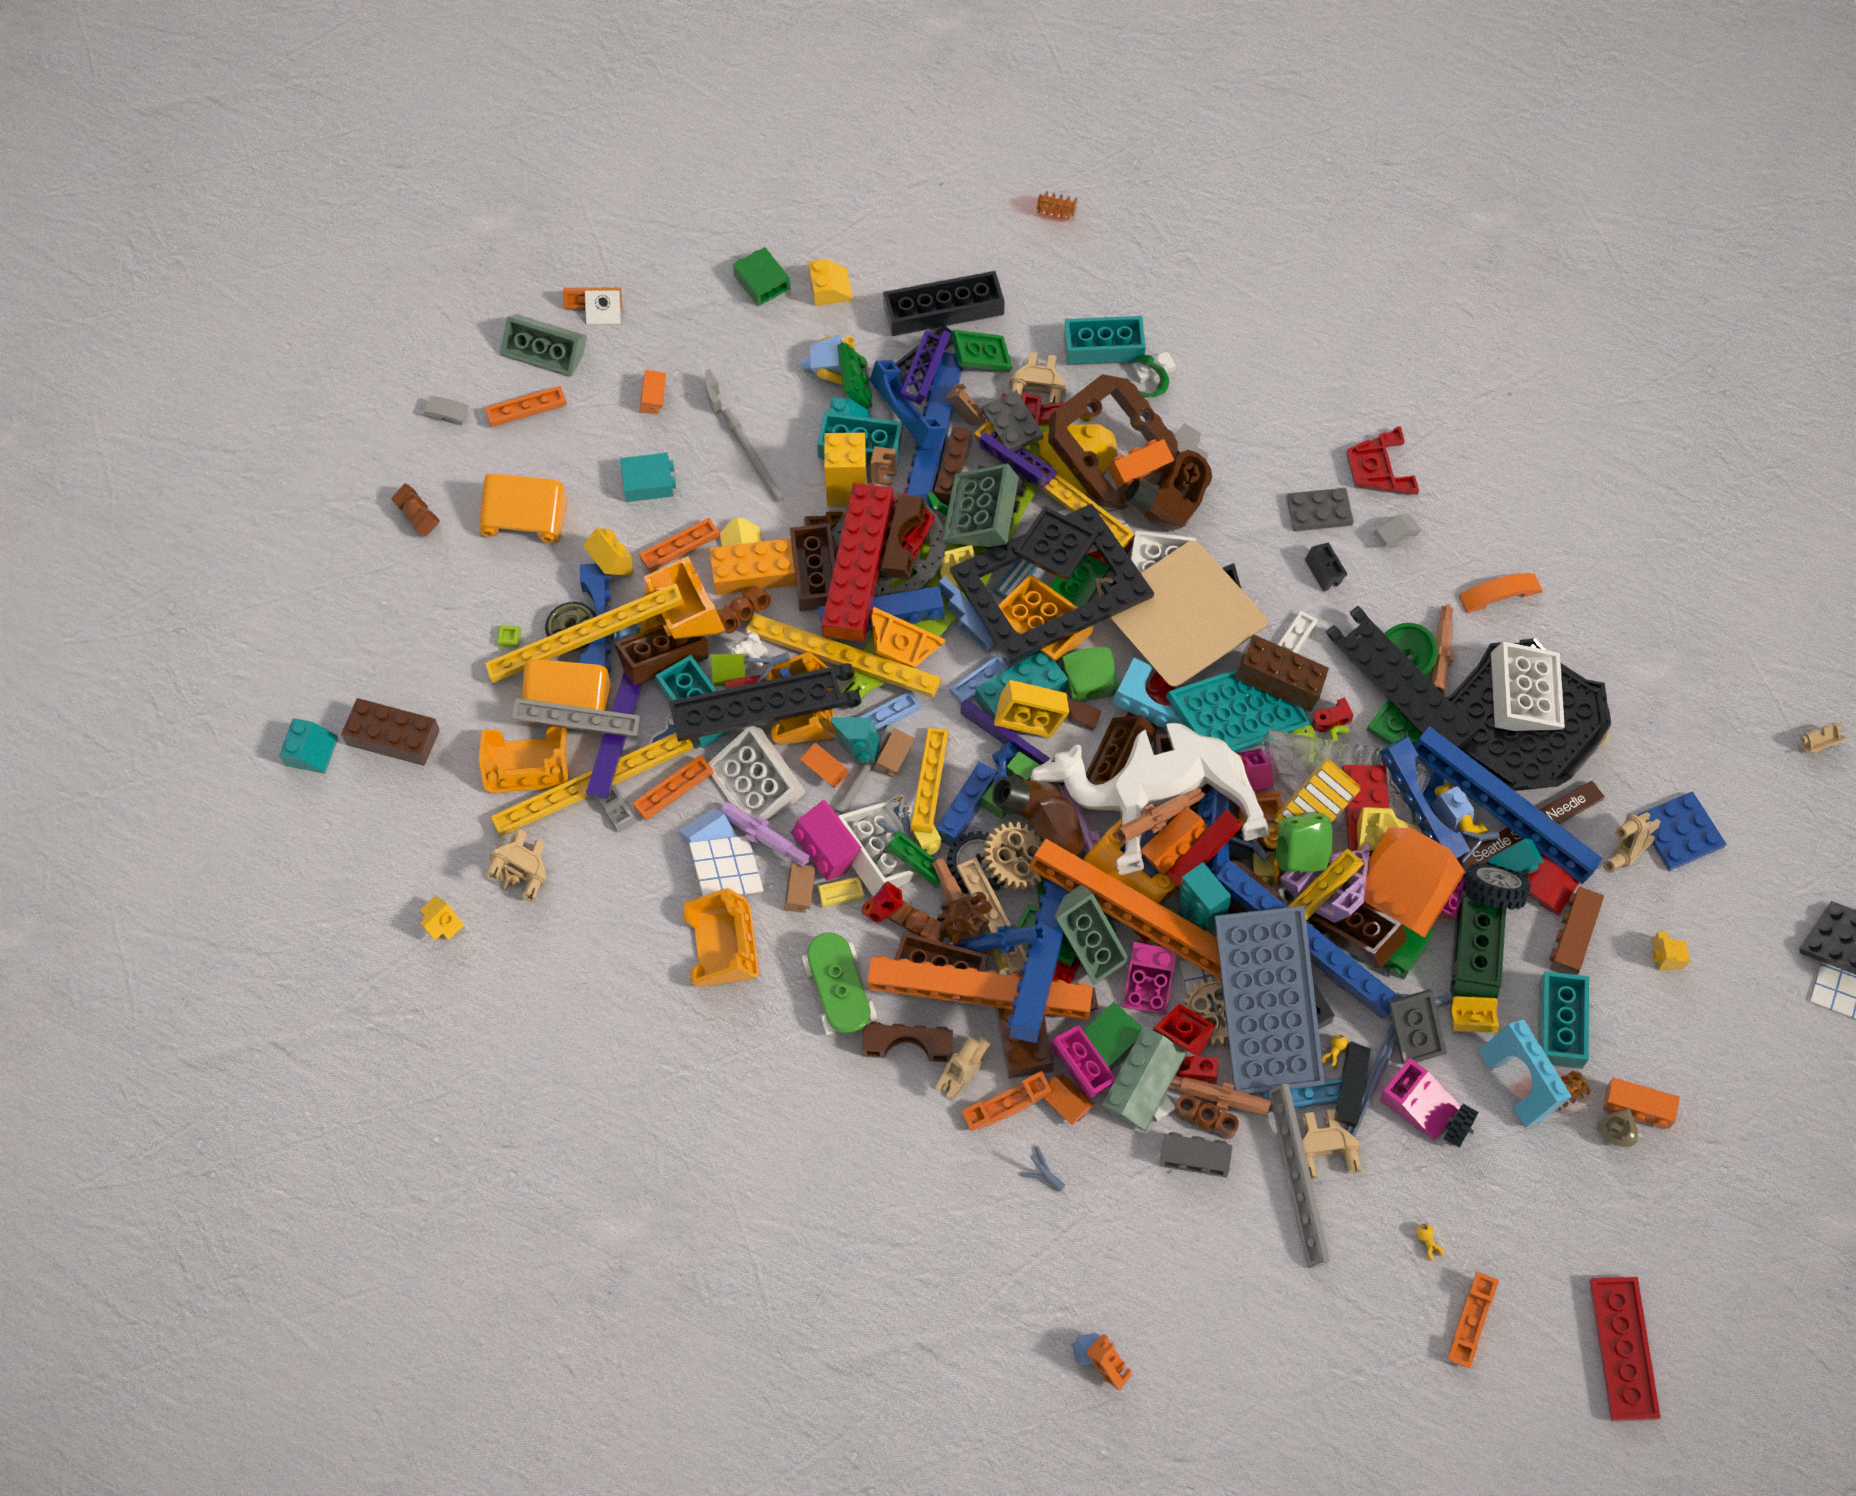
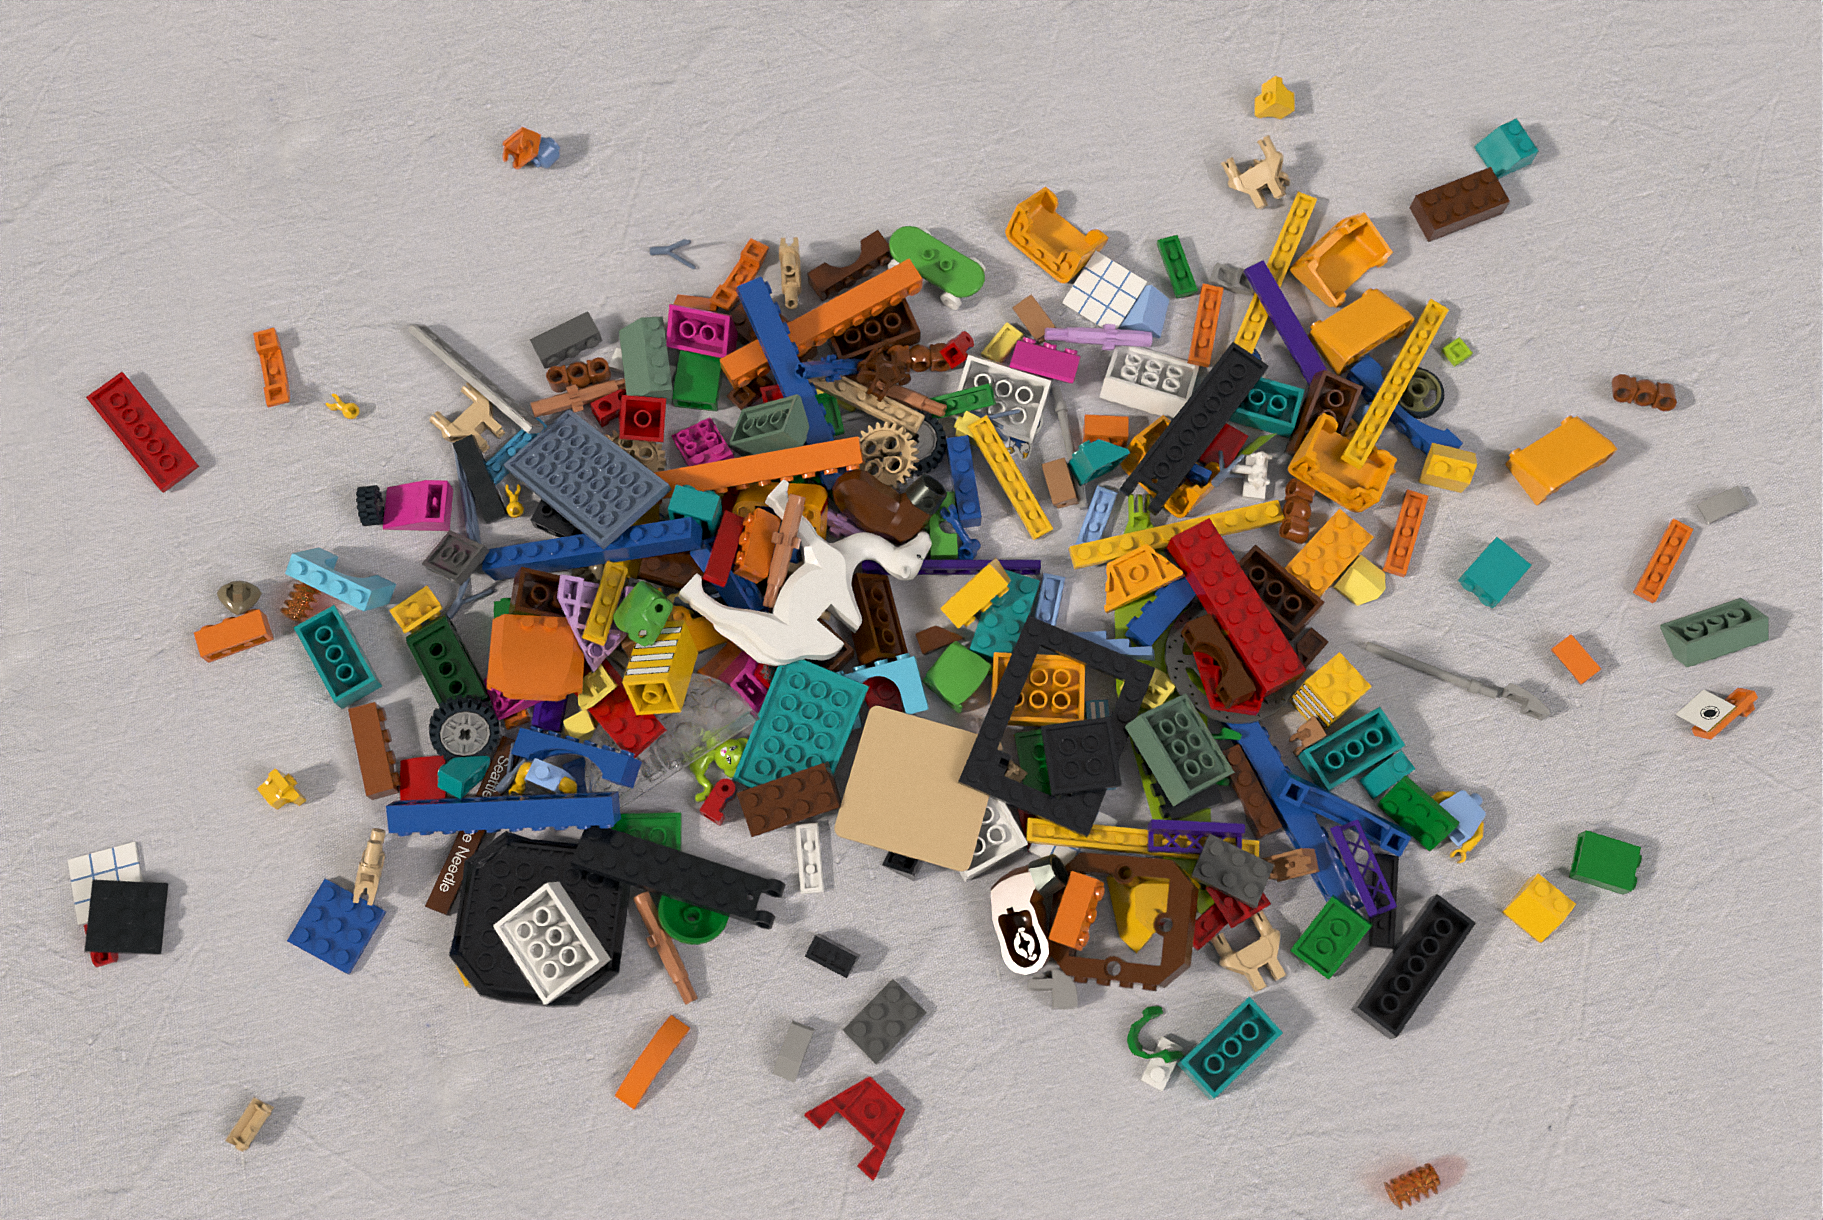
camera: 140 degrees right, 10 degrees up
(576, 718) = (1329, 308): light grey plate -> none
(649, 848) = (1177, 266): none -> green plate

